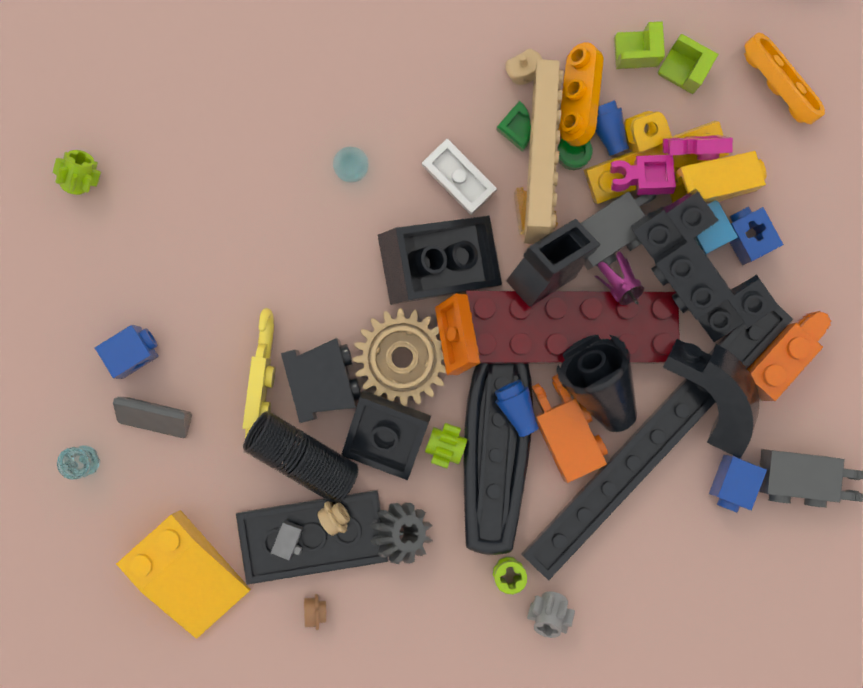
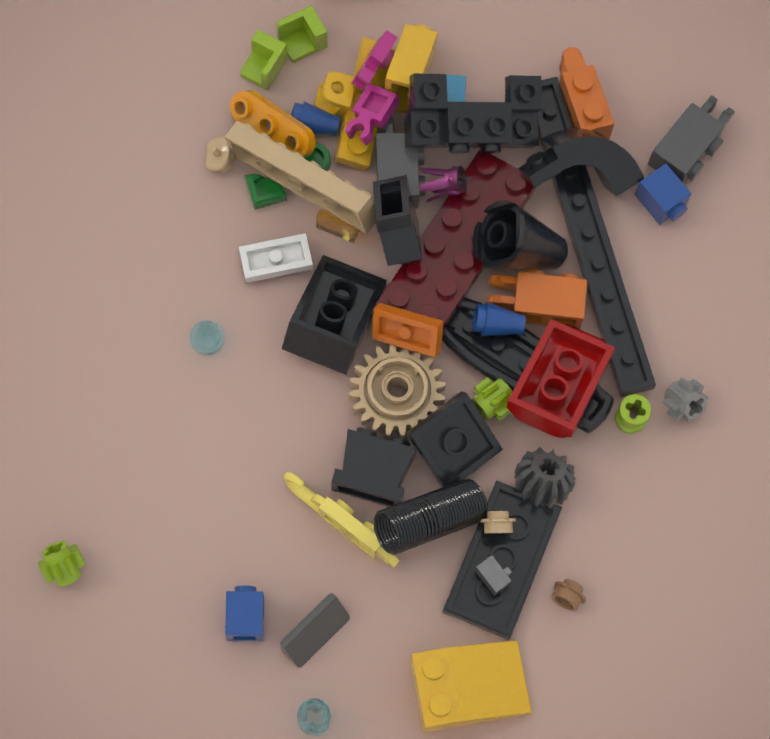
camera: 60 degrees left, 15 degrees down
(498, 497) = (559, 379): none -> red slope
(760, 244) = (481, 63): blue brick -> none

